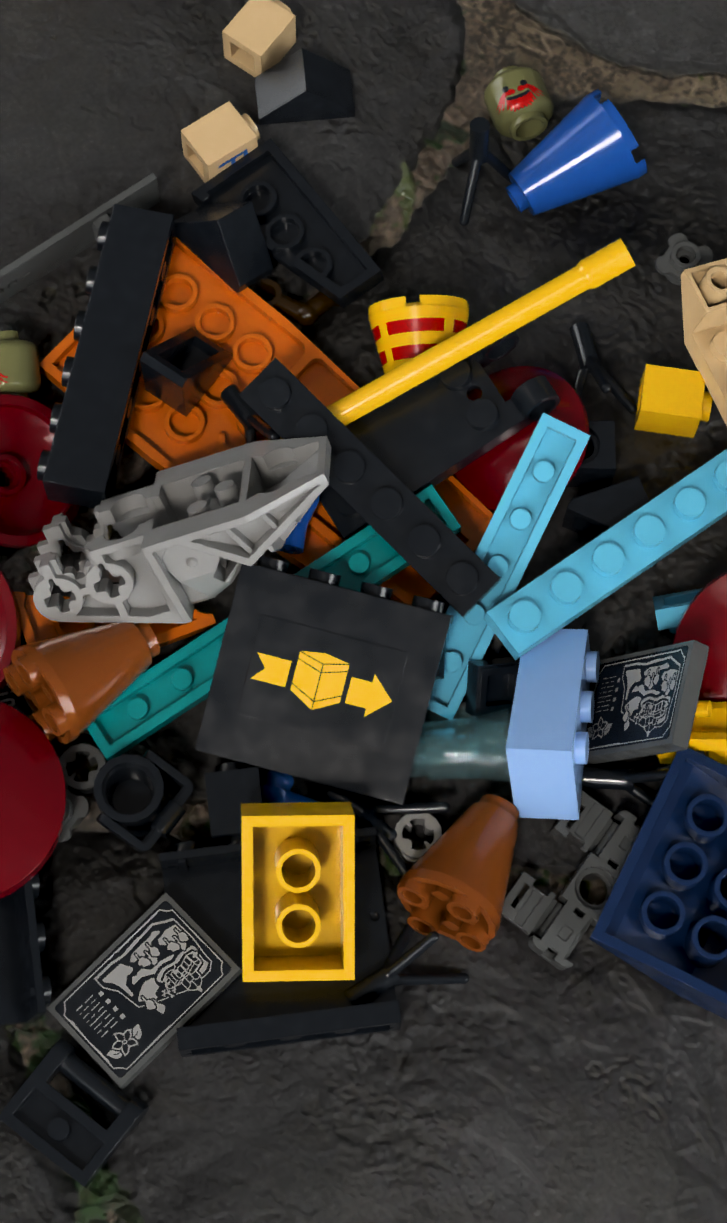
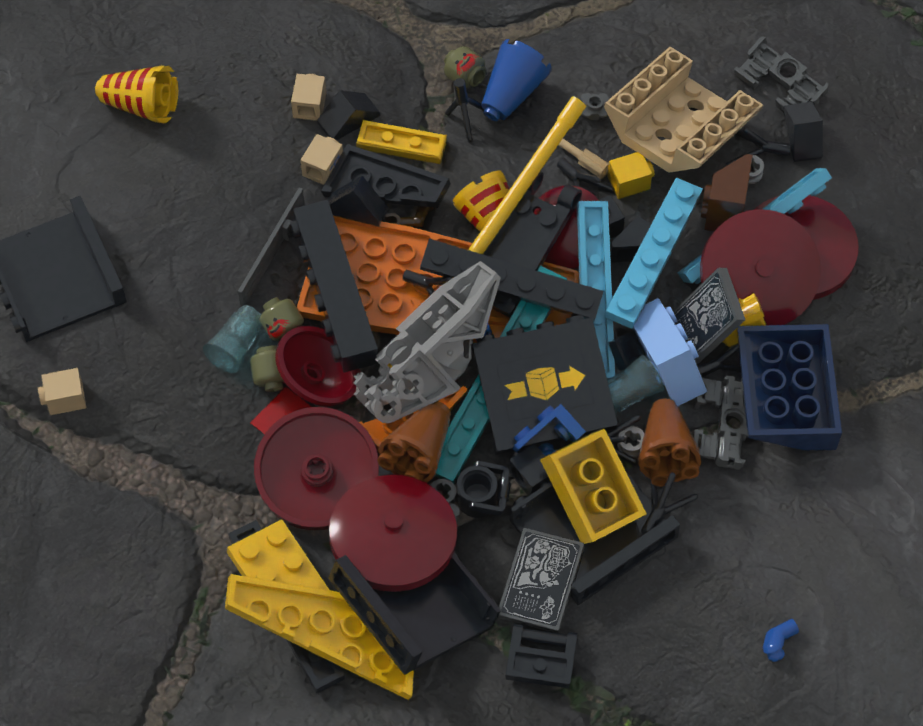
camera: 25 degrees left, 10 degrees down
(183, 369) = (376, 276): black slope -> none
(312, 772) = (565, 426): none -> blue bracket
(358, 174) = (401, 142): none -> yellow tile
(620, 341) = (587, 159): none -> tan axle

